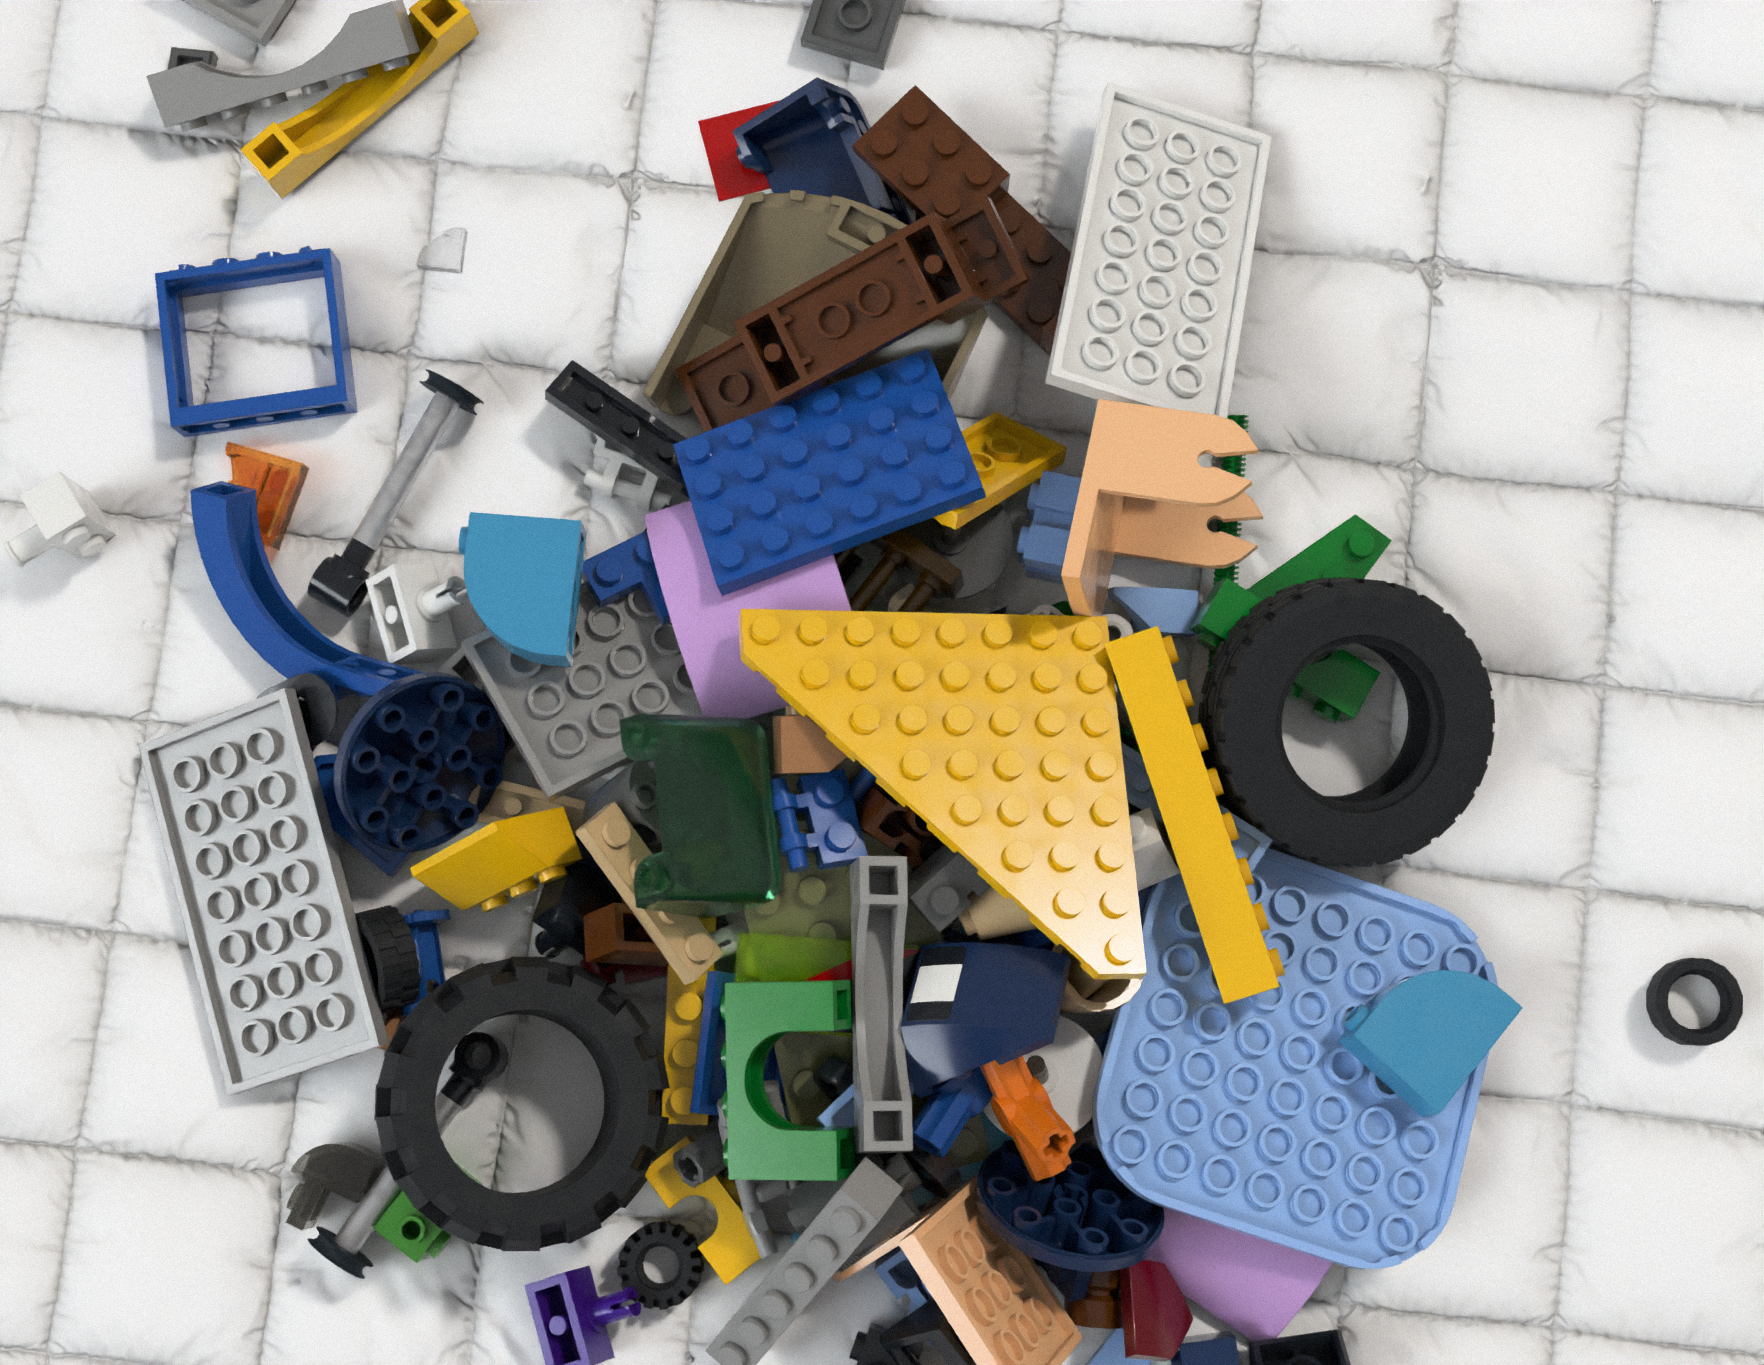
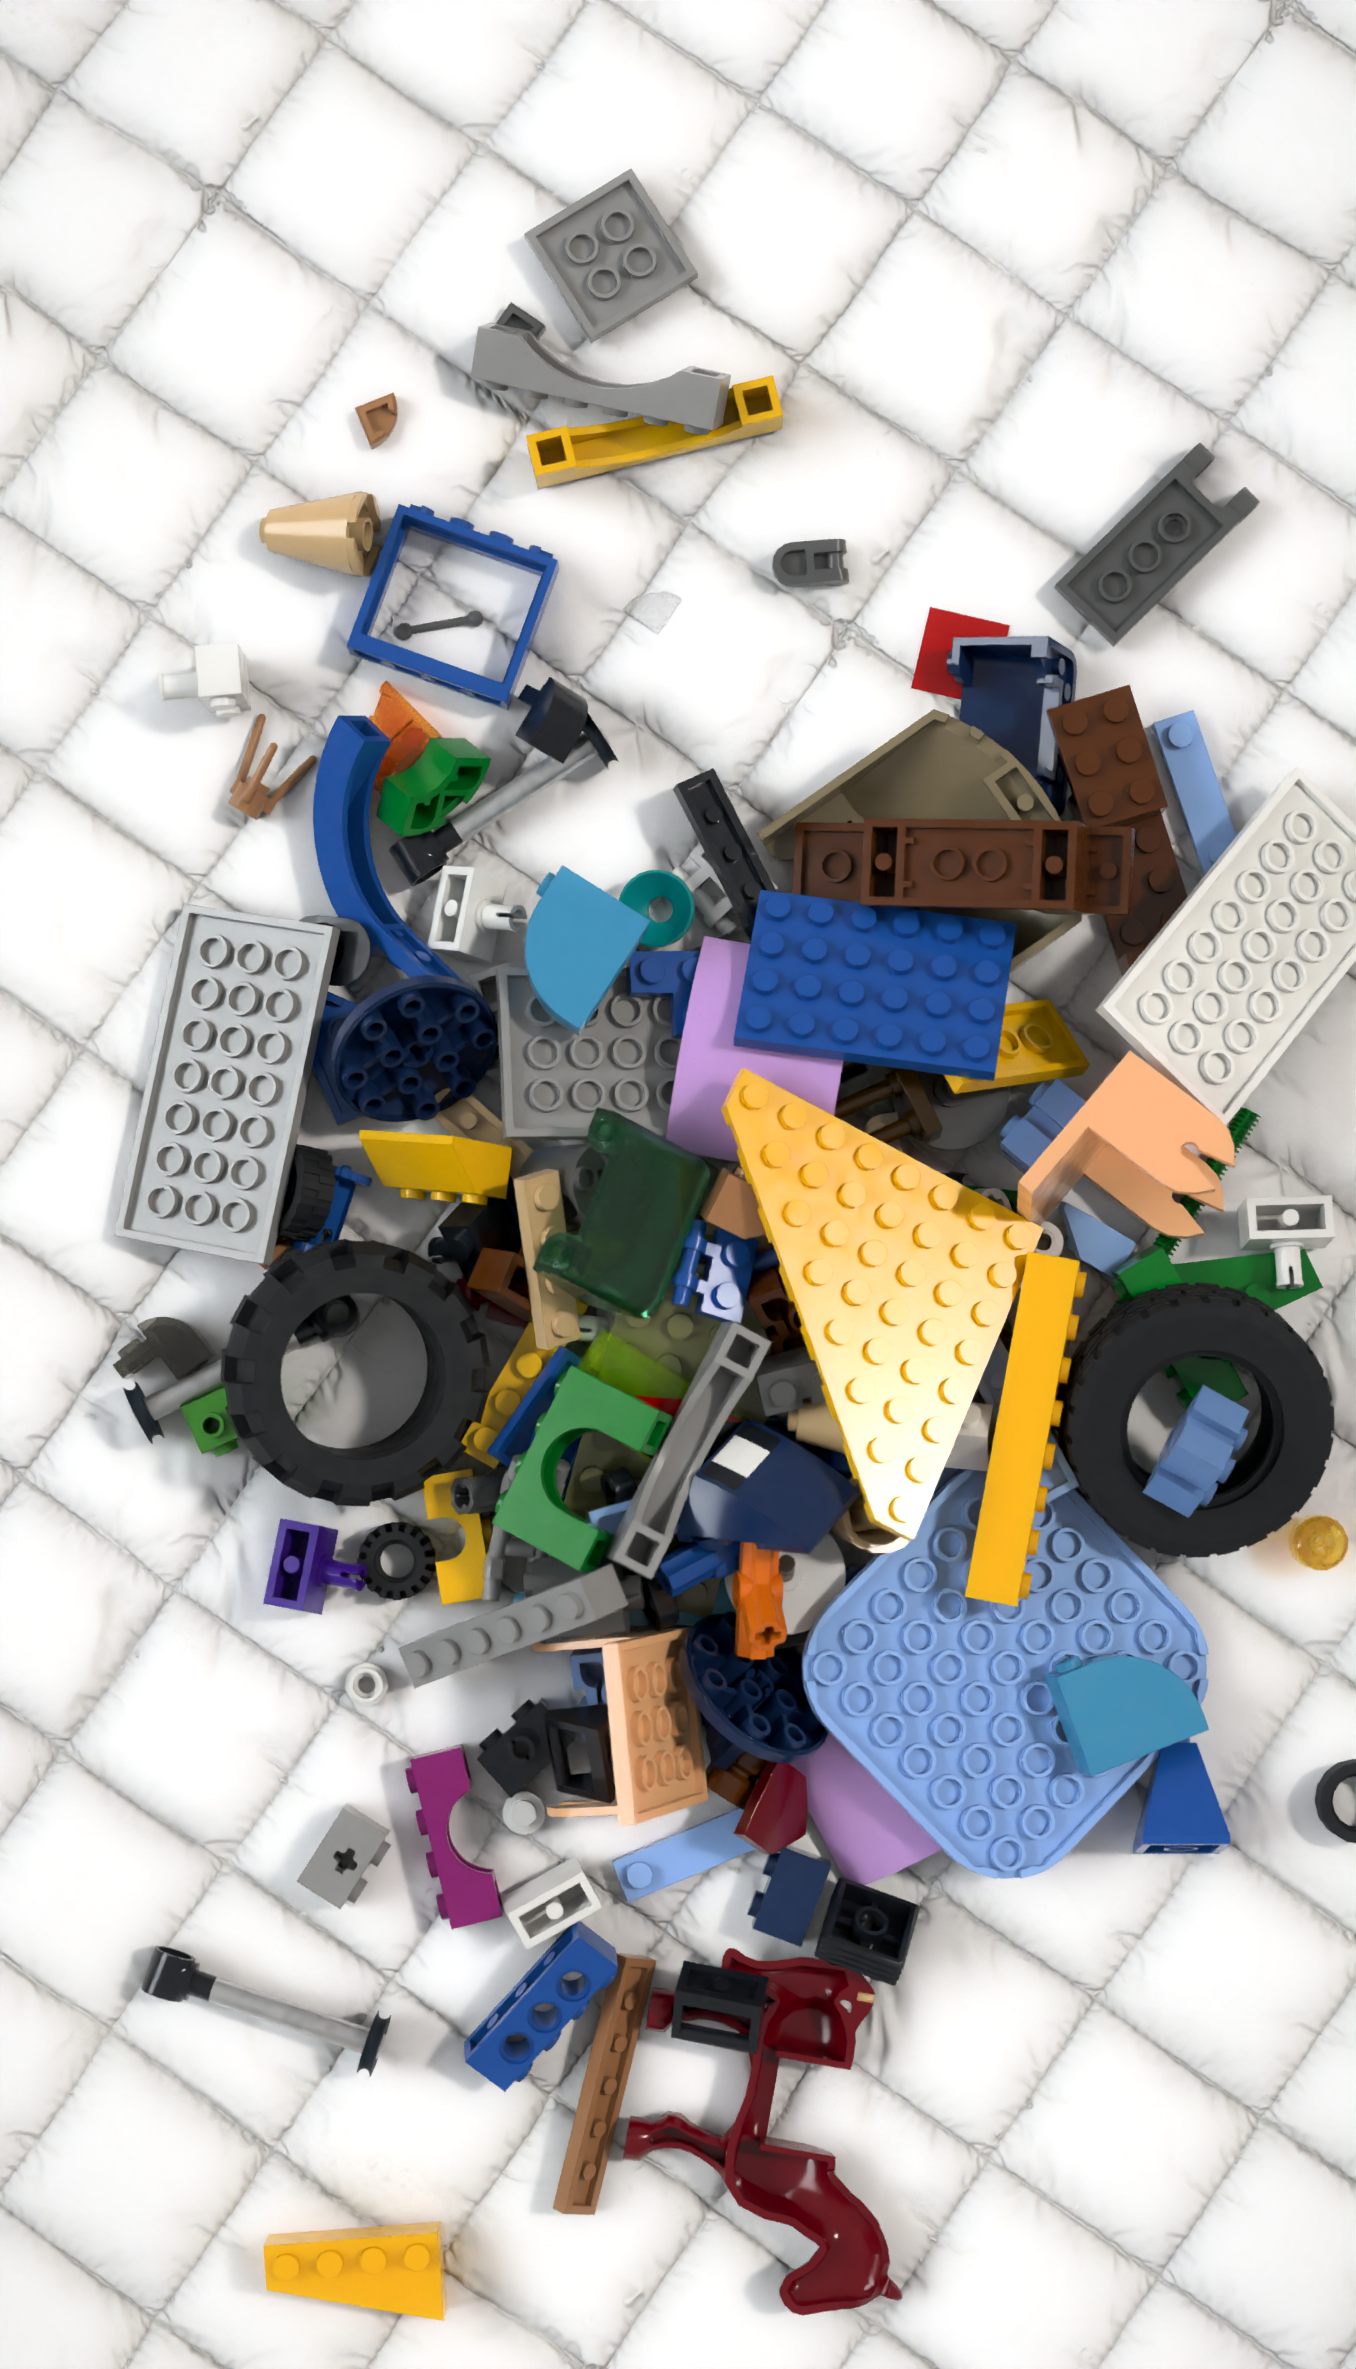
camera: 25 degrees right, 5 degrees up
(101, 334) = (327, 532): none -> tan cone
(102, 212) = (378, 419): none -> medium nougat tile
(151, 611) = (248, 792): none -> medium nougat plant
(225, 389) = (405, 630): none -> dark grey hinge
(319, 513) = (433, 786): none -> green brick
(398, 392) = (553, 720): none -> black brick
(554, 144) = (795, 563): none -> dark grey plate
(584, 491) = (654, 884): none -> teal piece
(1024, 154) = (1195, 787): none -> light blue plate
(1328, 503) = (1285, 1228): none -> white brick
(1368, 747) = (1198, 1452): none -> medium blue brick
(1511, 787) = (1303, 1544): none -> clear yellow head
(1534, 1097) = (1180, 1806): none -> blue slope

